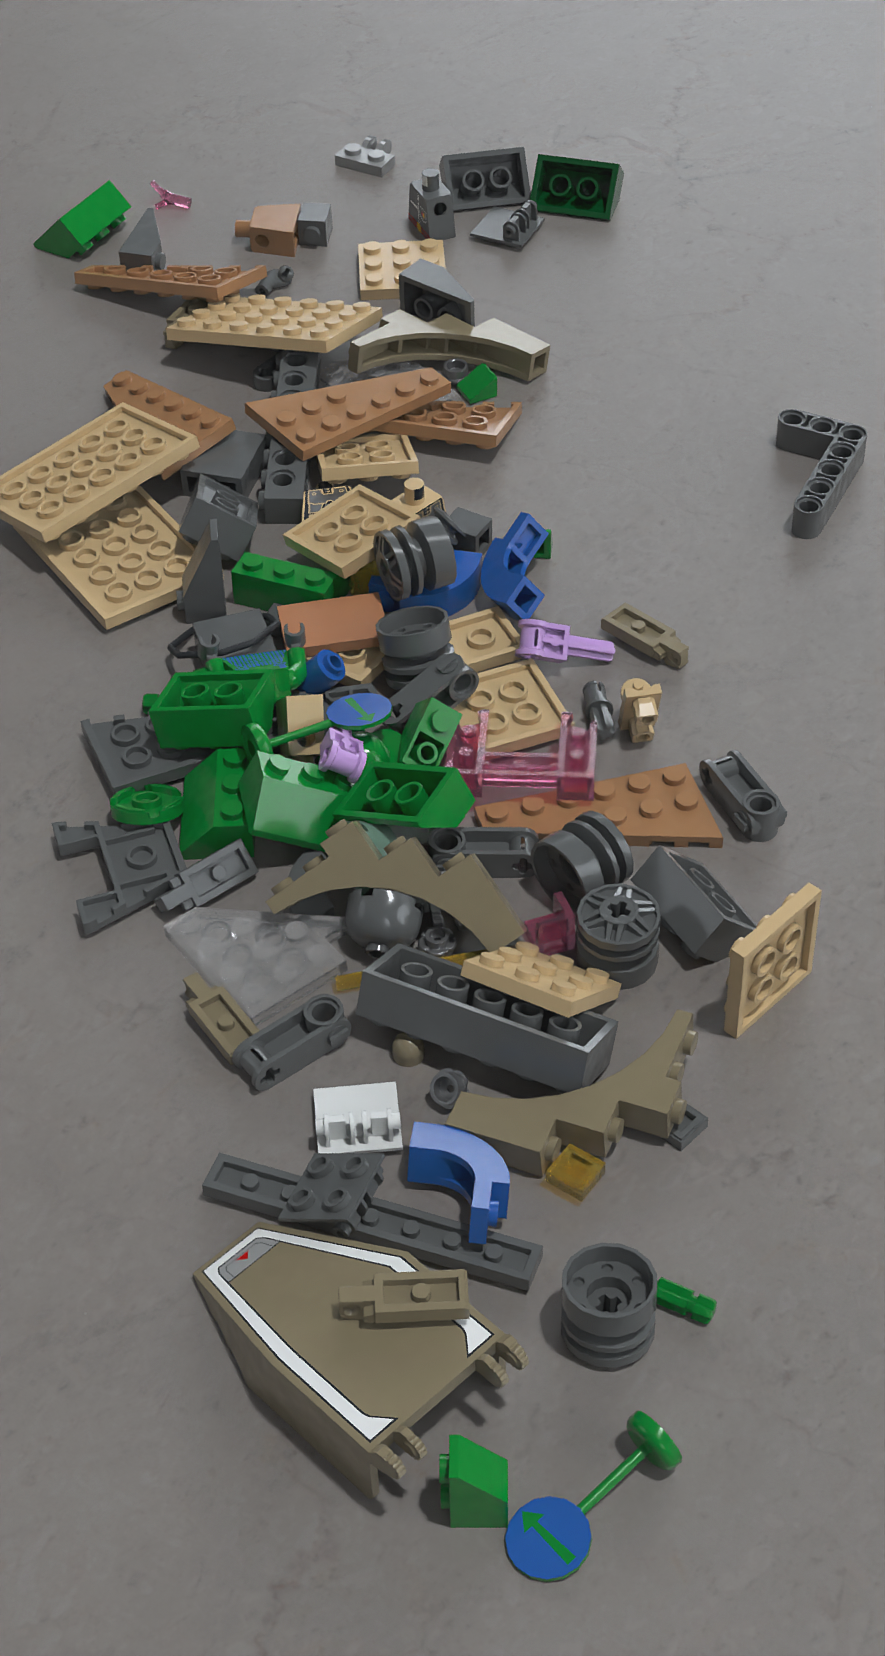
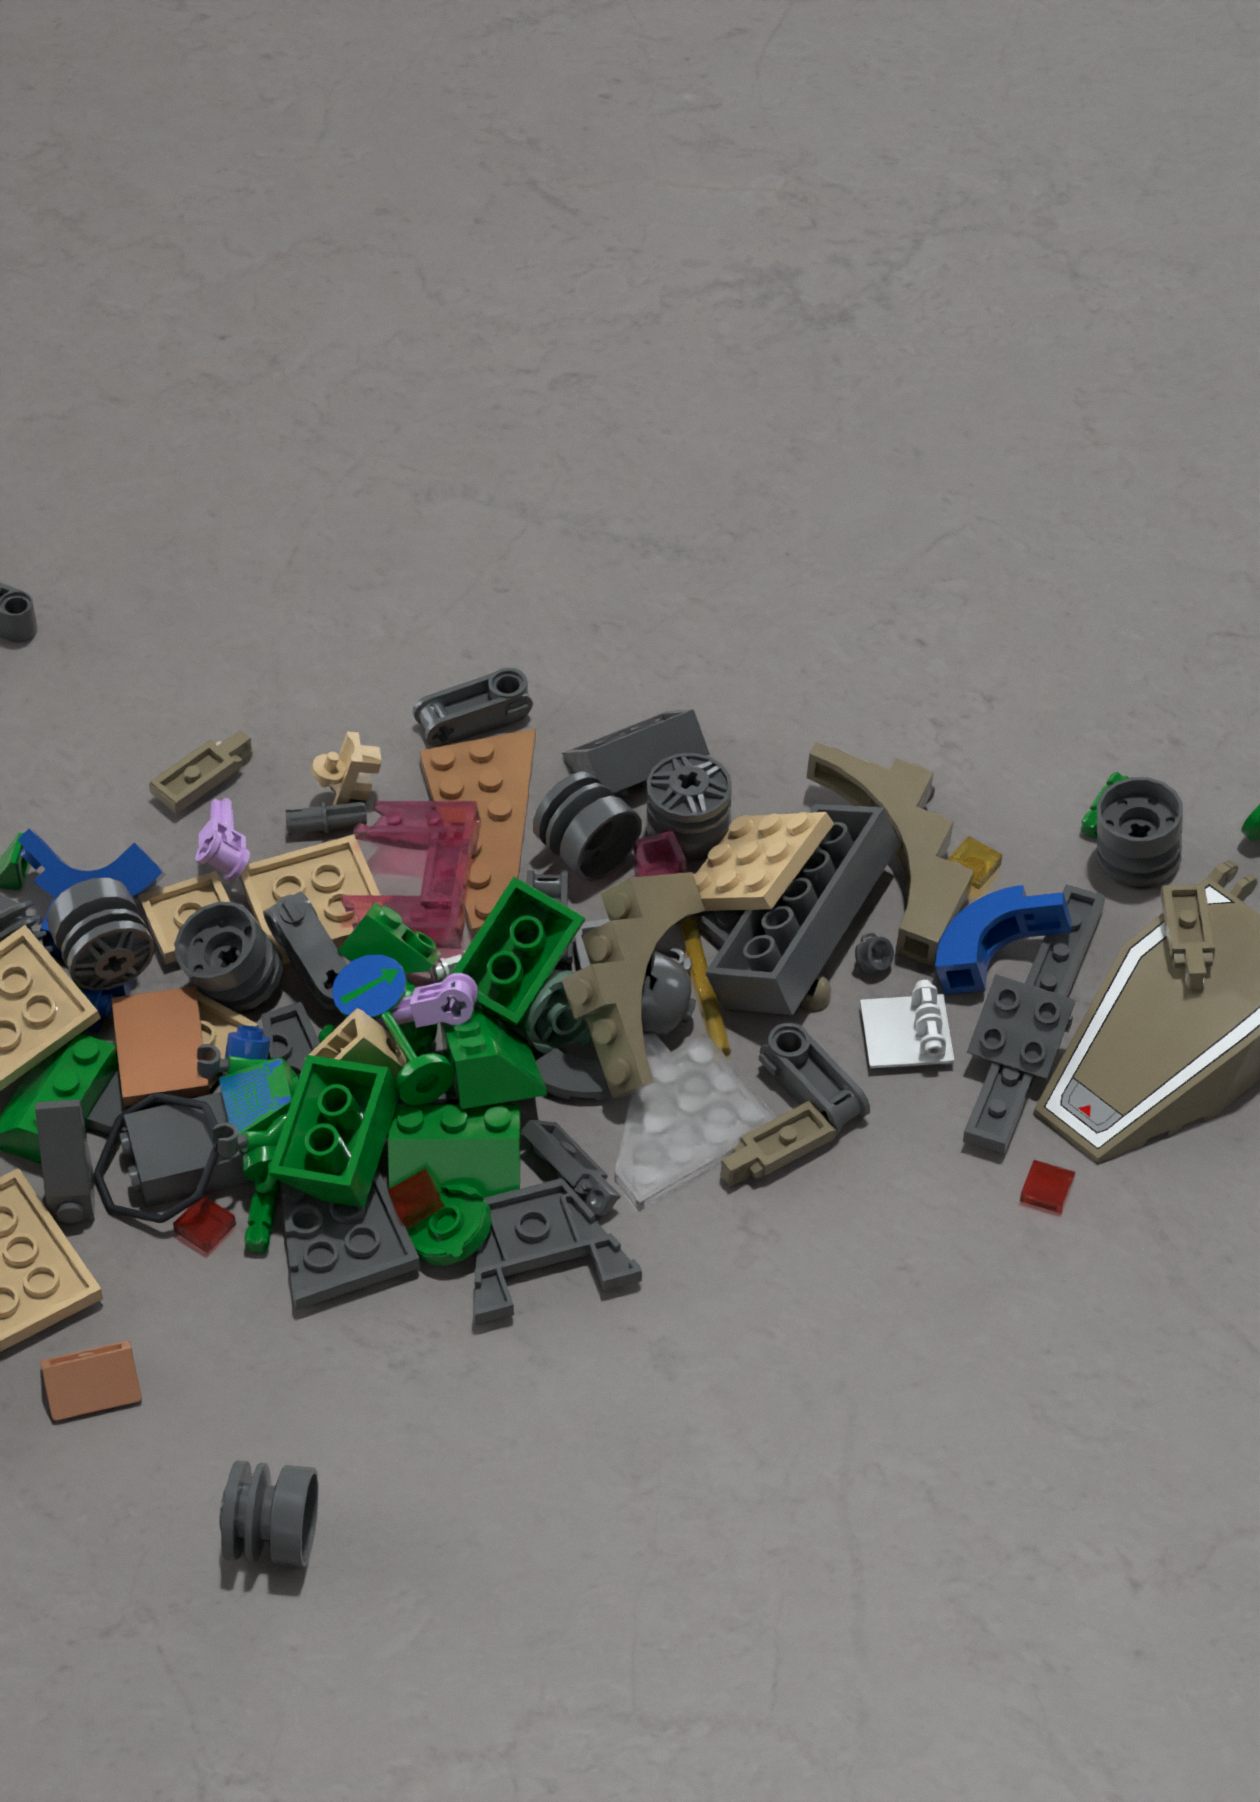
camera: 90 degrees left, 5 degrees up
(31, 621) = (91, 1380): none -> nougat panel
(162, 1230) = (1047, 1186): none -> clear red tile
(163, 672) = (204, 1224): none -> clear red tile
(170, 780) = (416, 1198): none -> clear red tile
(771, 959) = (749, 679): tan plate -> none

